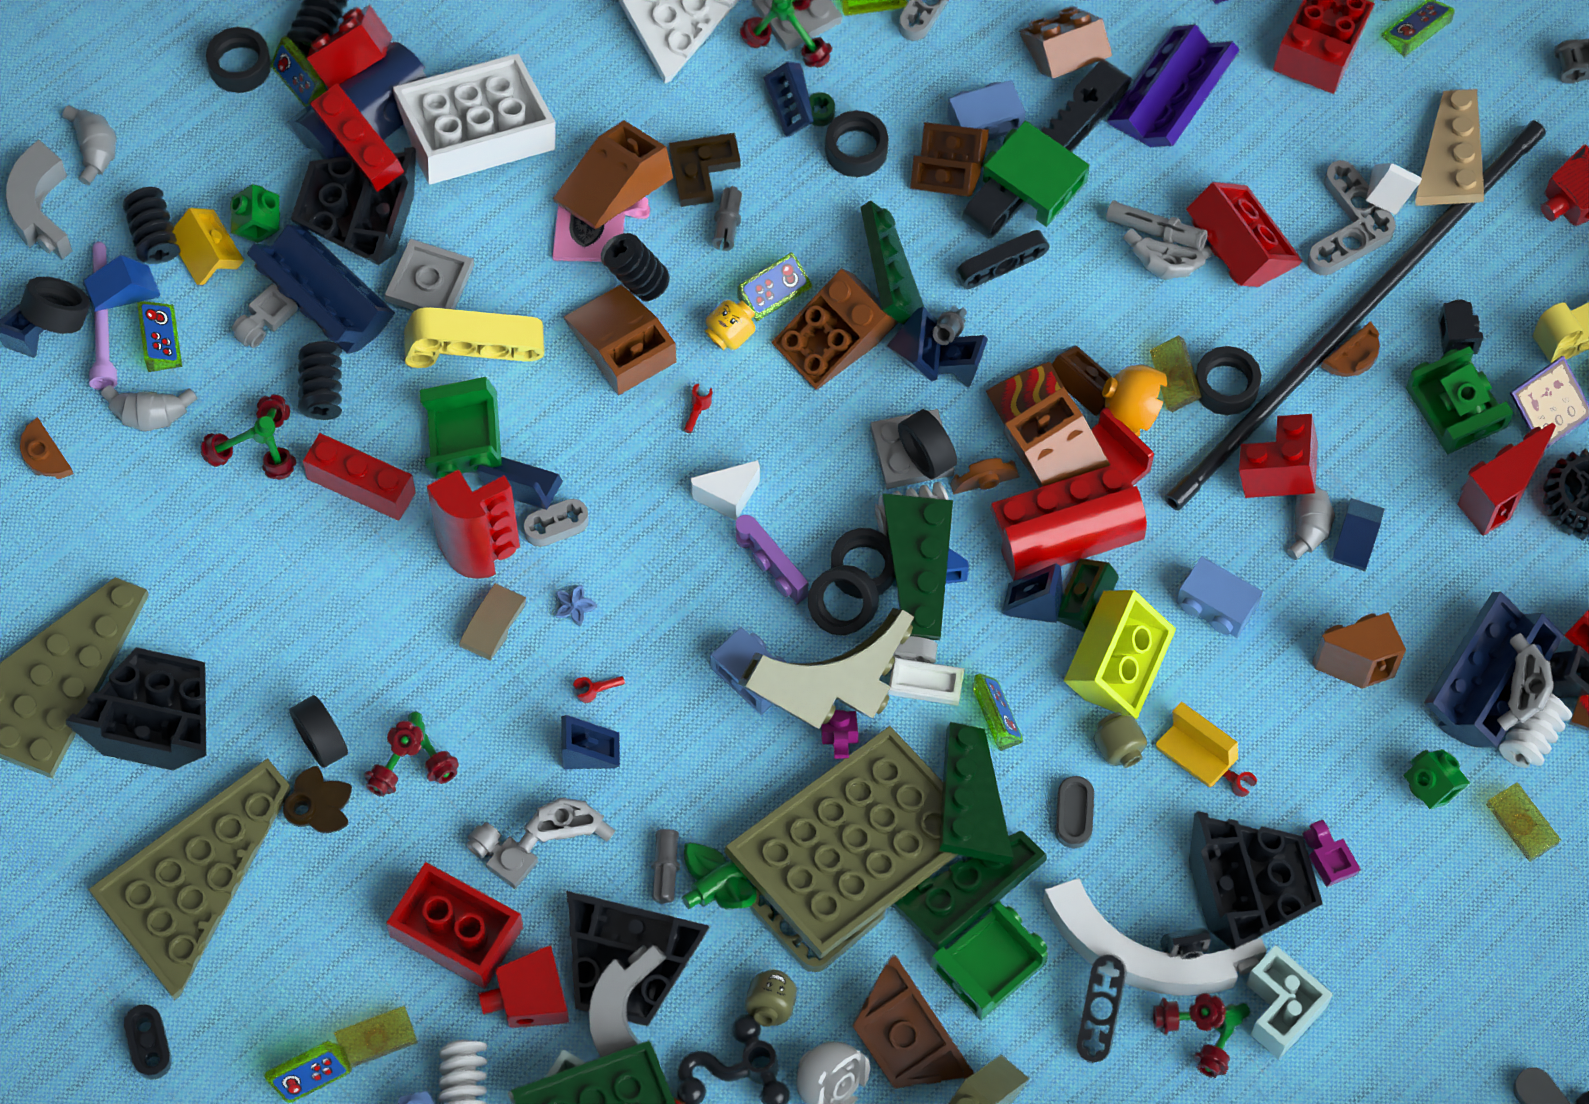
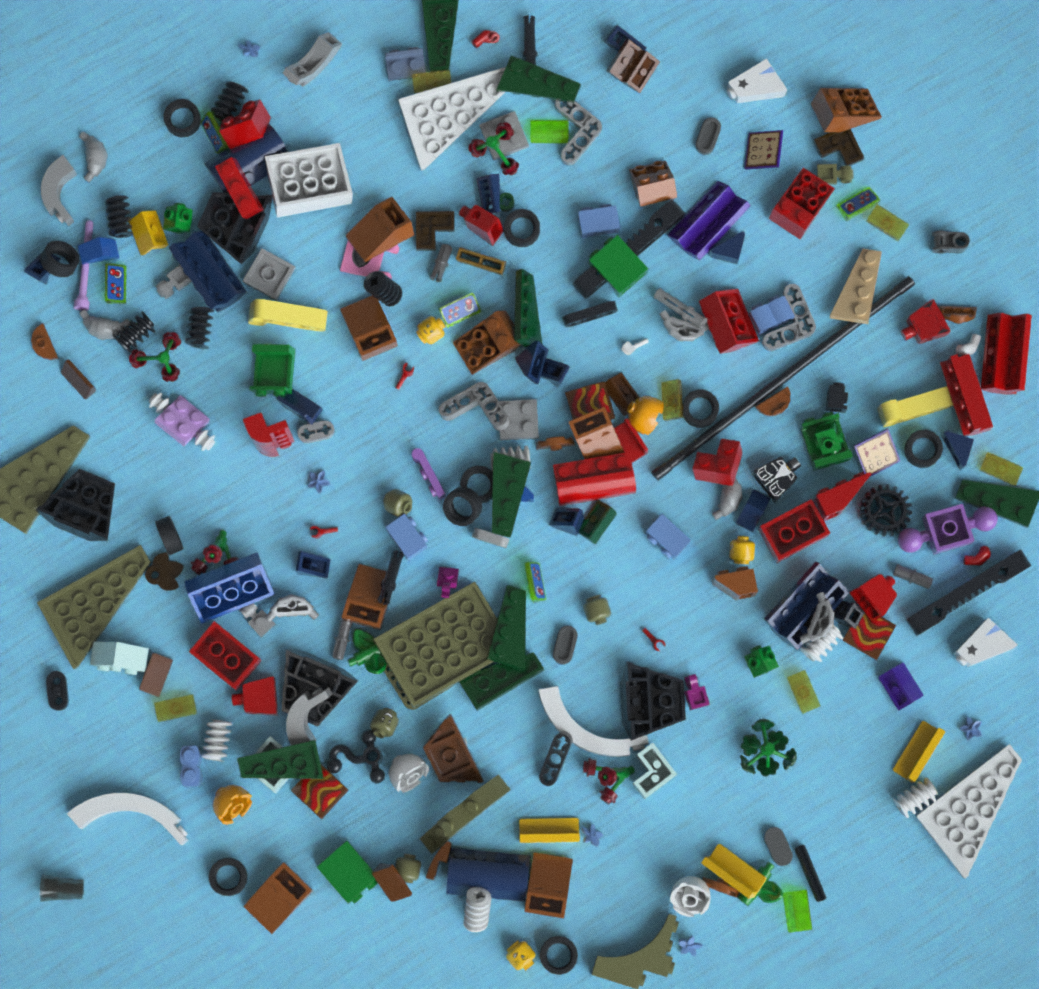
camera: 10 degrees right, 15 degrees up
(113, 500) = (77, 380): none -> slope
(205, 404) = (135, 332): none -> black piece
(255, 955) = (119, 656): none -> light aqua brick
(309, 1071) = (138, 722): slope -> none
(312, 538) = (182, 421): none -> lavender plate
(329, 984) = (156, 674): none -> reddish brown slope
(359, 476) = (212, 388): red brick -> none
(444, 802) = (229, 588): none -> blue brick
(491, 621) = (272, 485): dark tan slope -> none
(702, 785) = (362, 601): none -> dark orange slope
(724, 613) = (397, 502): none -> olive head
(727, 488) = (412, 429): white slope -> none
(735, 747) = (388, 584): none -> black pin
(788, 142) = (482, 223): none -> red torso
(796, 203) = (482, 257): none -> pearl gold piece
(831, 422) = (475, 399): none -> light grey beam
(851, 678) = (458, 554): arch -> none
(926, 681) = (500, 557): white tile -> none
(927, 444) = (523, 425): black tyre -> none
(949, 159) = (571, 248): reddish brown slope -> none
(949, 325) = (552, 352): flat silver axle -> none
(991, 960) = (503, 720): green panel -> none
(1081, 305) = (628, 348): none -> white hand
(1120, 653) = (607, 560): neon yellow slope -> none
(1187, 943) = (606, 732): black slope -> none
(1198, 746) = (637, 621): yellow panel -> none
(1217, 125) = (729, 250): none -> dark blue slope
(1315, 214) = (771, 315): none -> medium blue brick
(1355, 597) = (742, 550): none -> yellow head
(1386, 469) = (777, 476): none -> black torso
(1391, 186) = (817, 306): white slope -> none
(1440, 550) = (794, 531): none -> red brick
(1475, 46) = (887, 223): none -> clear yellow plate
(1491, 921) = (776, 742): none -> dark green plant

